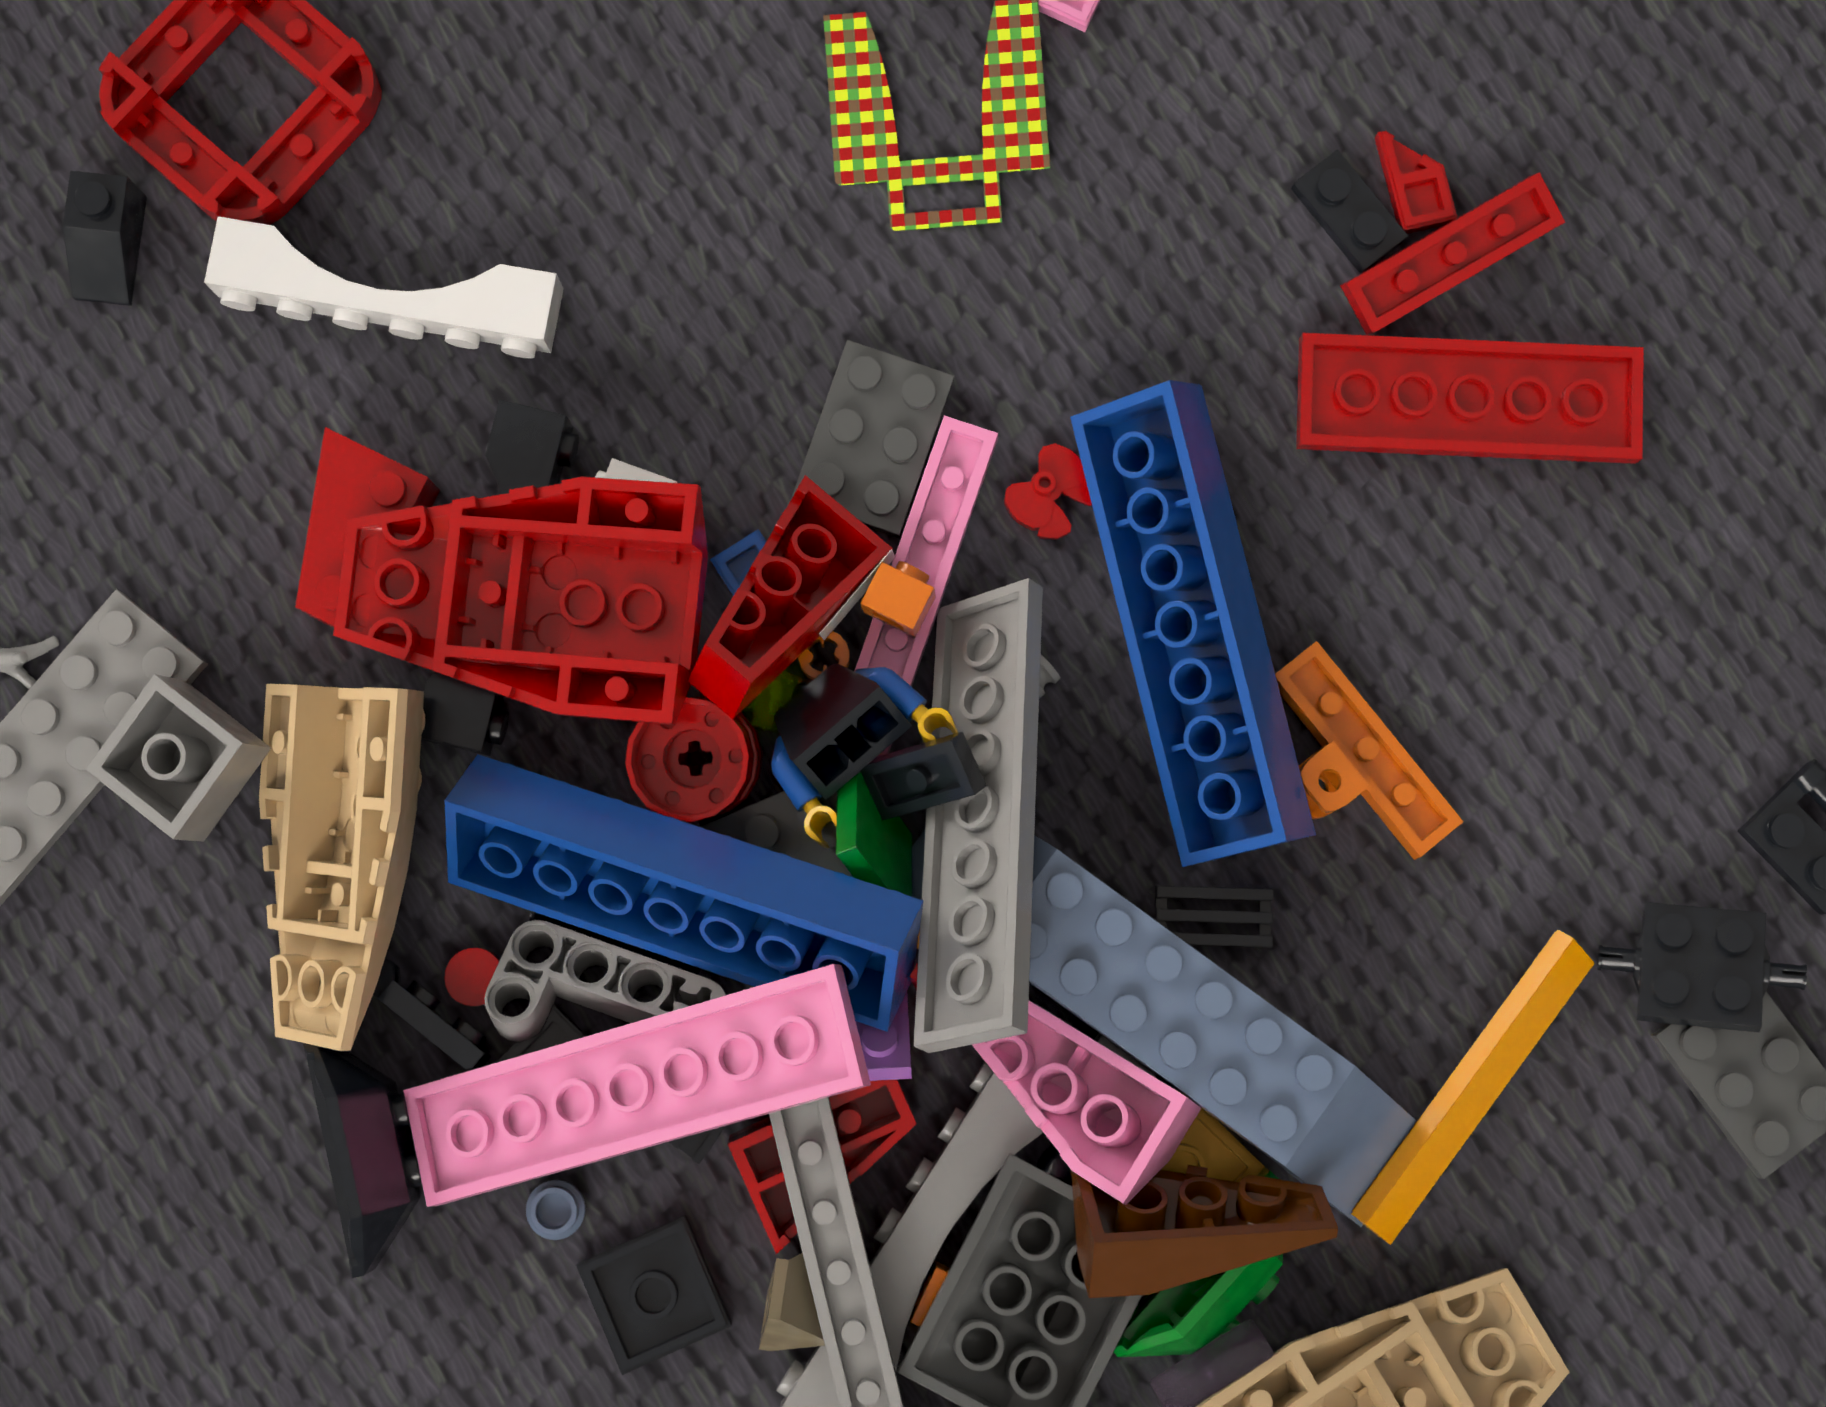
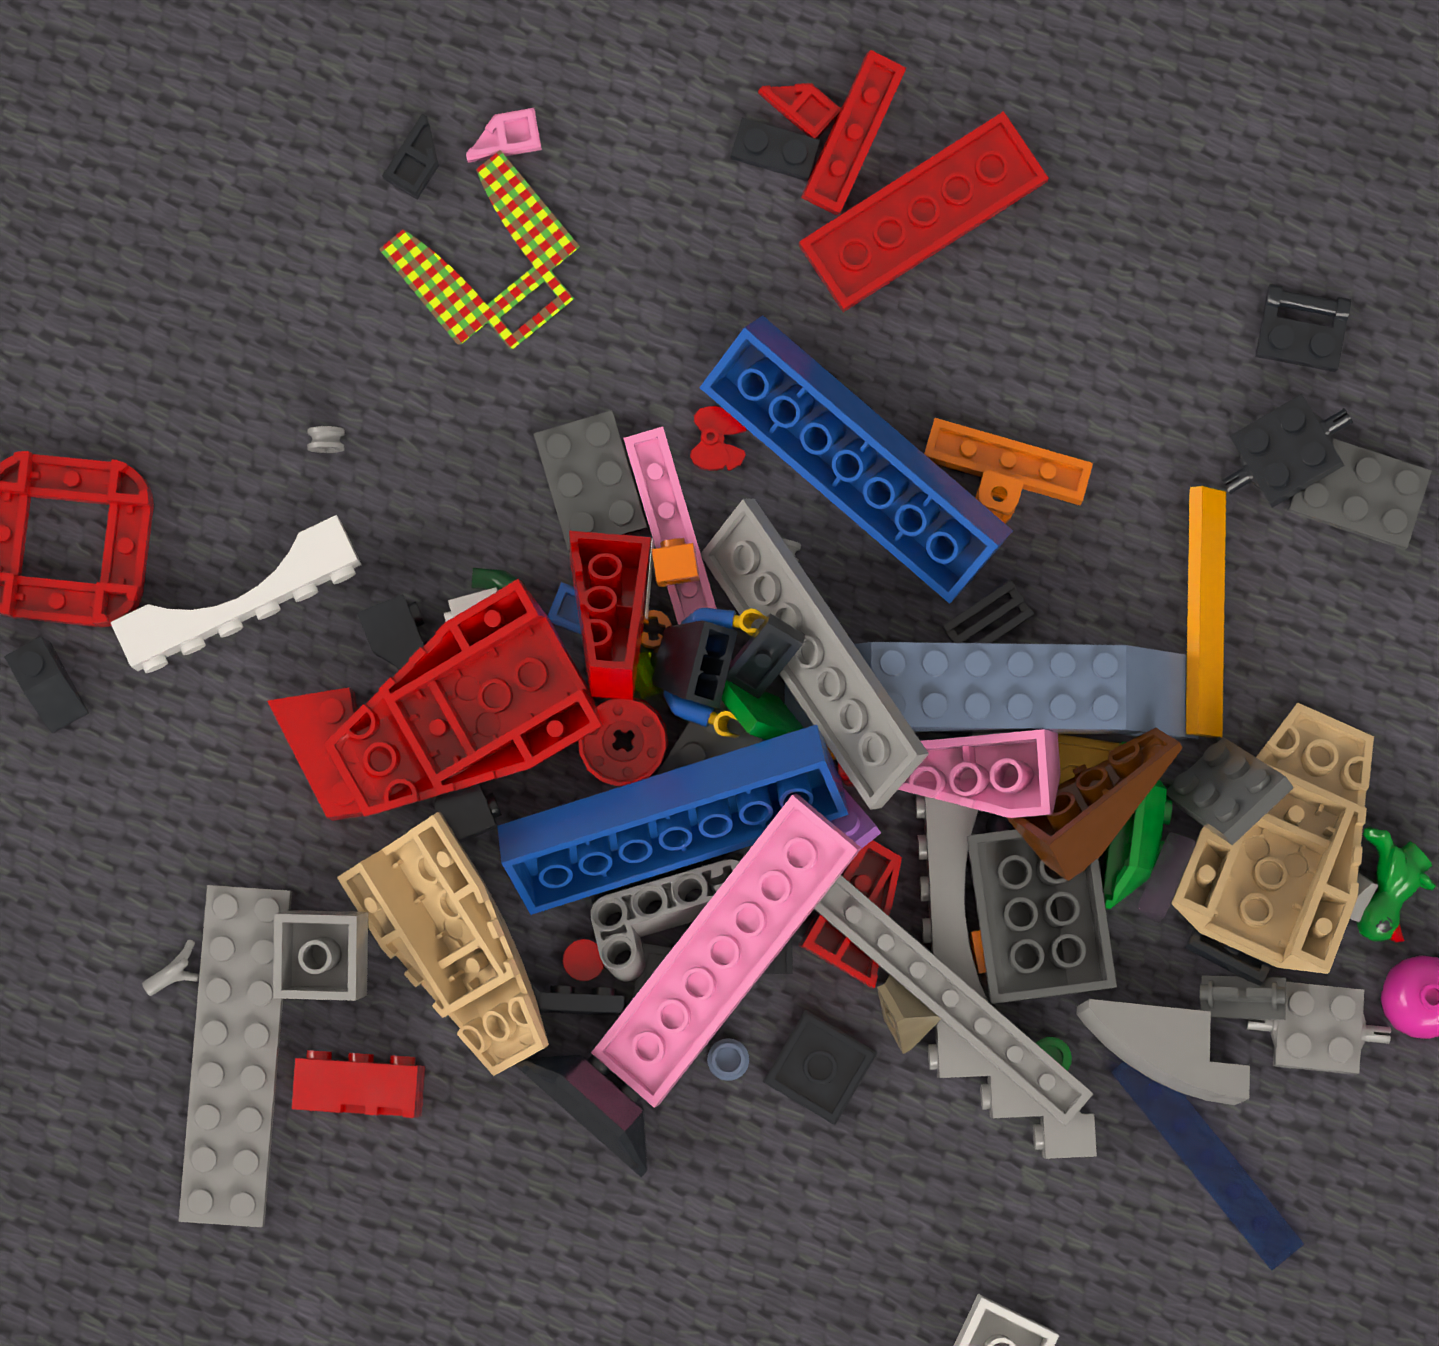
camera: 30 degrees left, 0 degrees up
(115, 939) = (358, 1085): none -> red wedge
(610, 184) = (325, 439): none -> light grey bush
(683, 470) = (491, 578): none -> dark green arm
(1356, 1321) = (1228, 790): none -> dark grey plate

